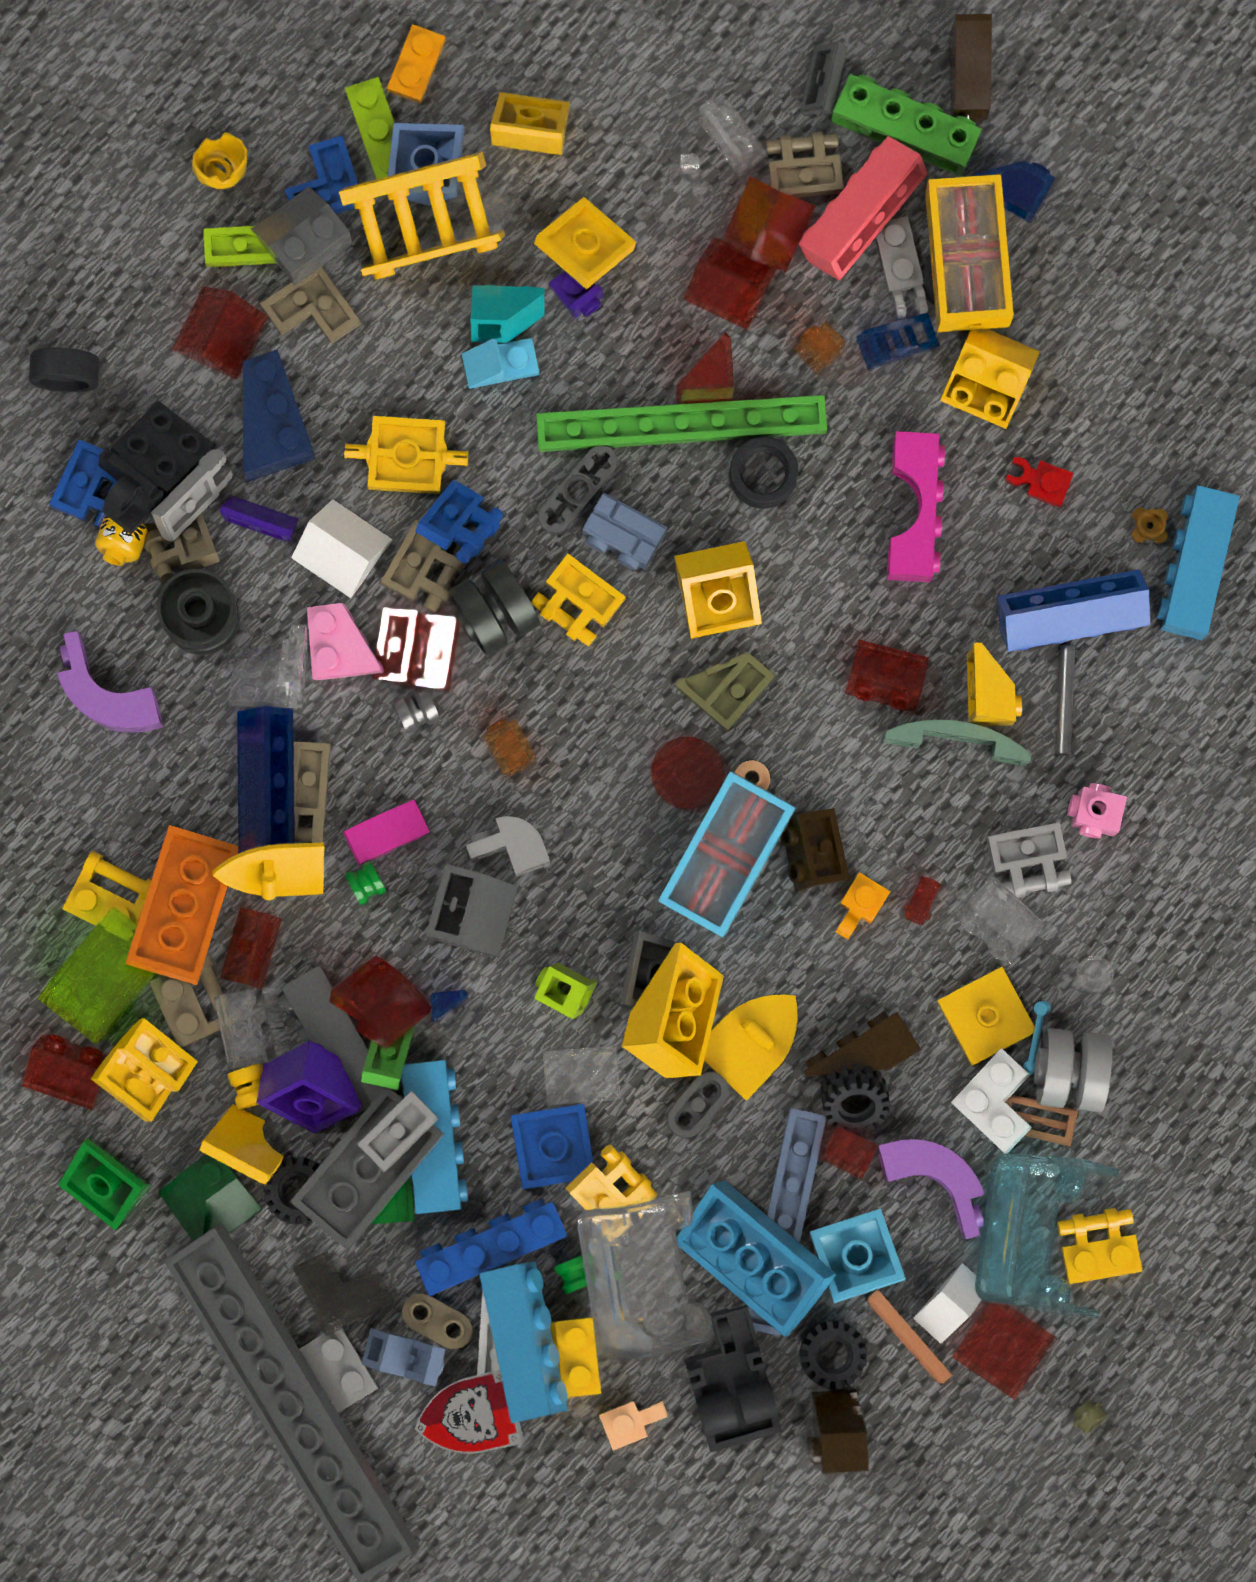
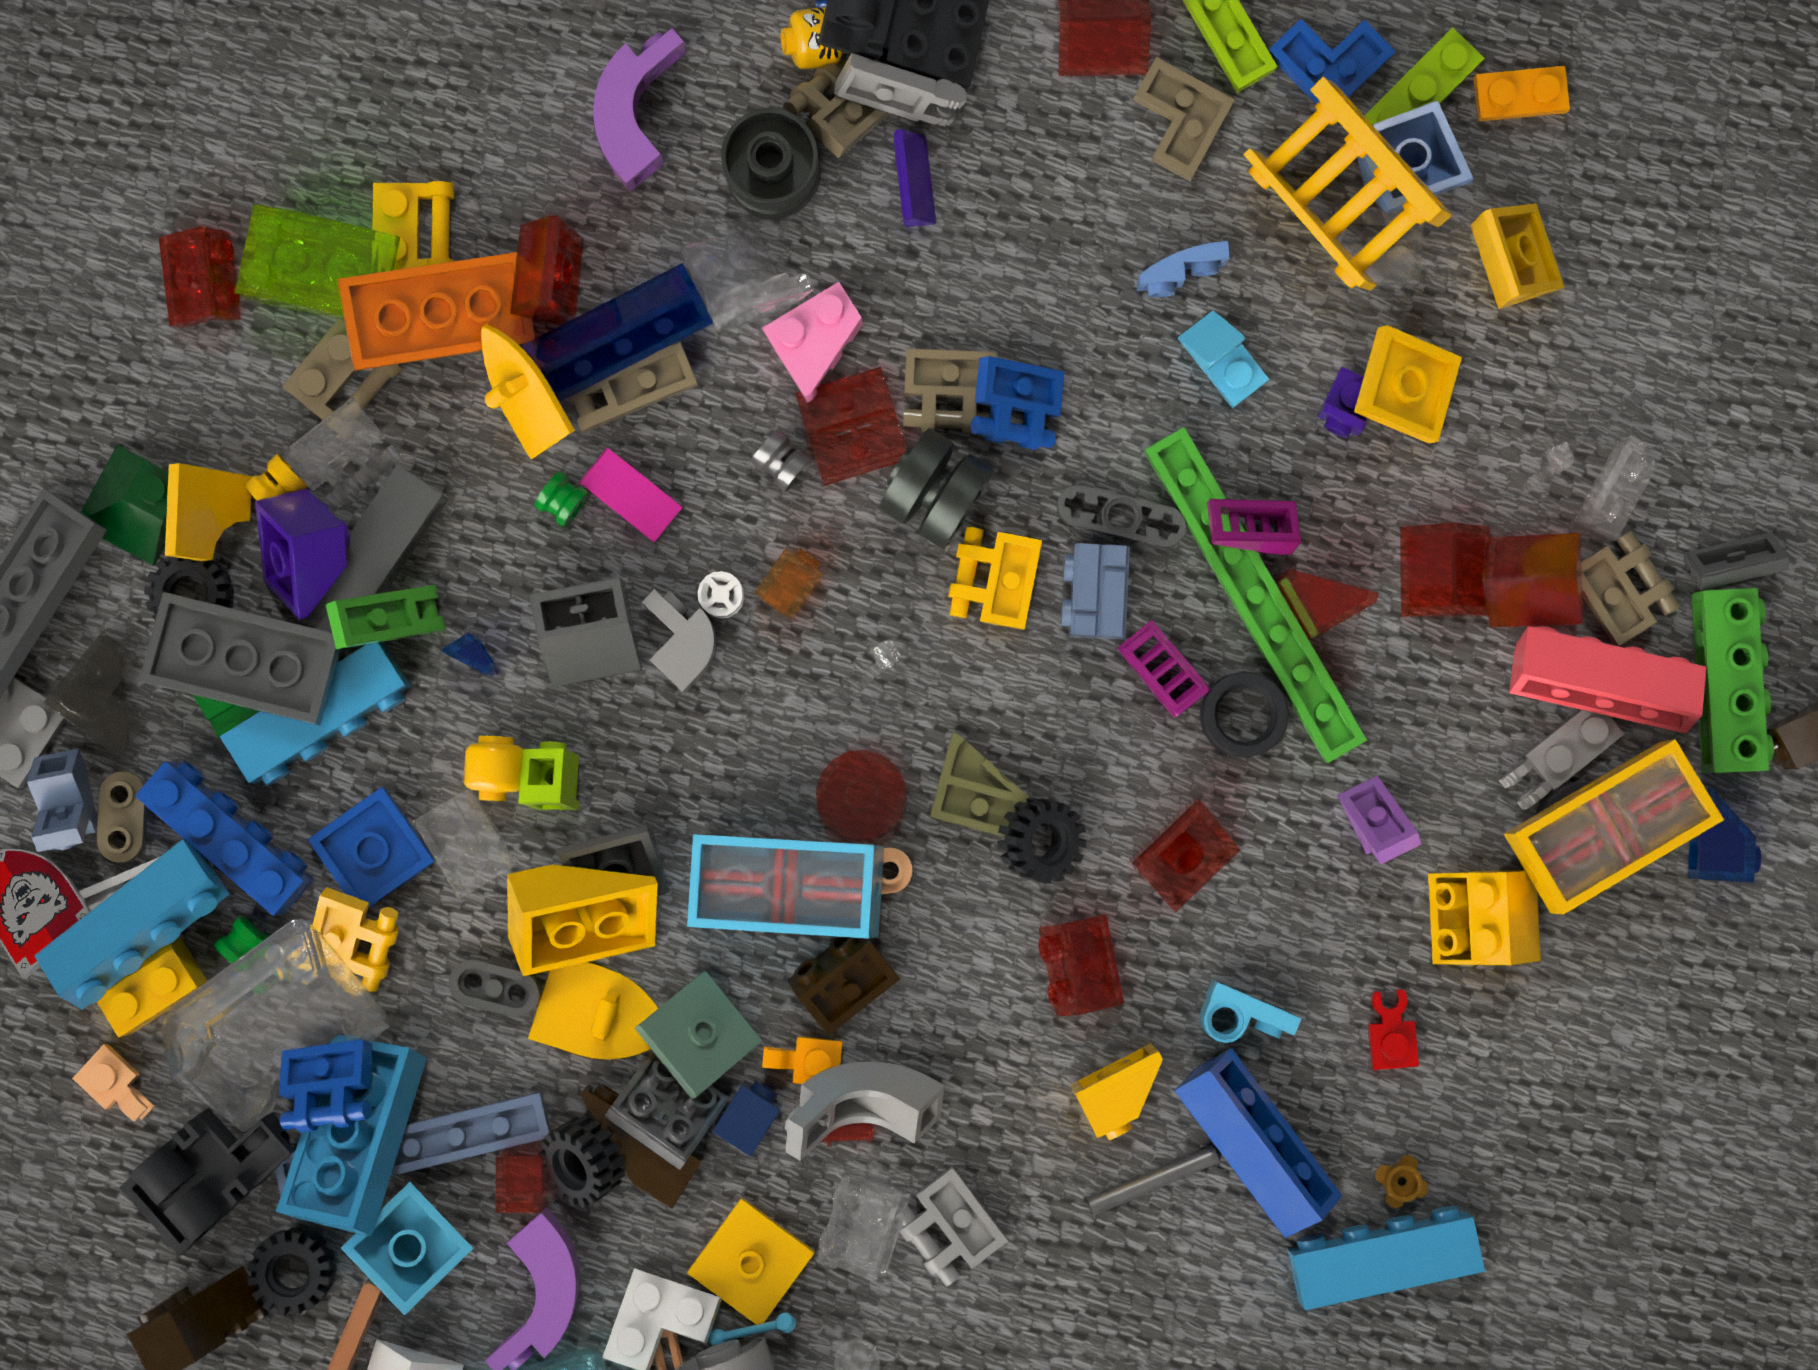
camera: 65 degrees right, 5 degrees up
(103, 1183) = (99, 380): green slope -> none
(144, 1069) = (237, 360): yellow slope -> none
(193, 812) = (547, 271): none -> clear red slope
(251, 948) = (431, 411): clear red slope -> none
(271, 419) = (1030, 135): dark blue wedge -> none
(303, 235) = (1255, 64): dark grey slope -> none
(340, 547) = (925, 285): white slope -> none
(380, 1001) = (434, 581): clear red slope -> none
(398, 1131) = (290, 672): light grey plate -> none
(406, 455) = (1065, 305): yellow plate -> none
(420, 367) = (1170, 272): none -> medium blue slope
(491, 795) = (715, 589): none -> white wheel
(504, 311) = (1282, 332): teal slope -> none
(537, 1026) = (493, 767): none -> yellow head
(595, 706) = (885, 655): none -> clear hand
(633, 375) = (1281, 513): none -> magenta slope
(699, 1253) = (322, 1071): none -> blue plate
(718, 589) = (1085, 728): yellow slope -> none
(733, 520) = (1189, 697): none -> magenta slope
(795, 646) = (1062, 848): none -> black tyre
(804, 971) = (698, 1035): none -> sand green plate
(820, 347) = (1420, 708): clear orange brick -> none
(842, 563) = (1184, 854): none -> clear red slope
(845, 1018) = (662, 1113): none -> flat silver tile
(871, 351) = (1447, 766): clear blue slope -> none
(880, 964) = (748, 1116): none -> dark blue brick
(885, 414) = (1378, 820): none -> medium lavender slope
(905, 870) = (863, 1094): none -> light grey arch
(917, 463) = (1341, 883): dark pink arch -> none
(973, 575) = (1269, 1018): none -> medium azure plate
(1003, 748) = (1059, 1135): sand green slope -> none
(1110, 809) = (1044, 1294): bright pink brick -> none

